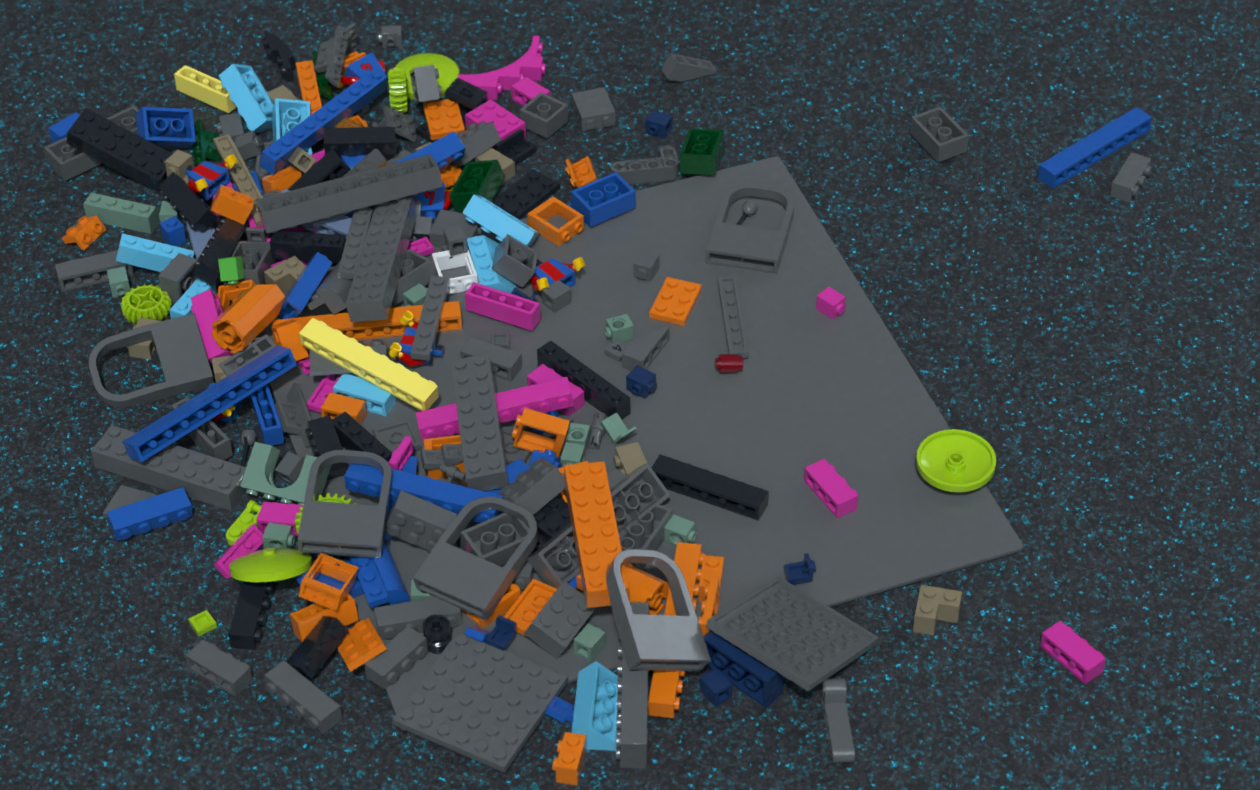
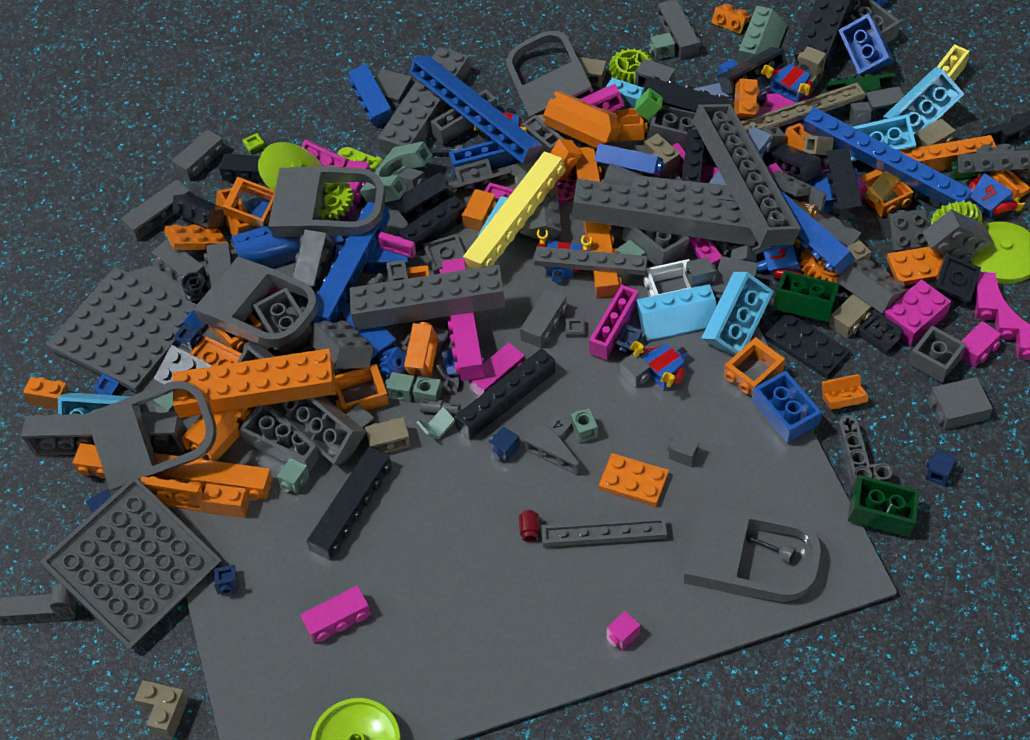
camera: 95 degrees right, 10 degrees up
(147, 253) = (693, 56): medium azure slope -> none
(514, 260) = (675, 326): dark grey brick -> none

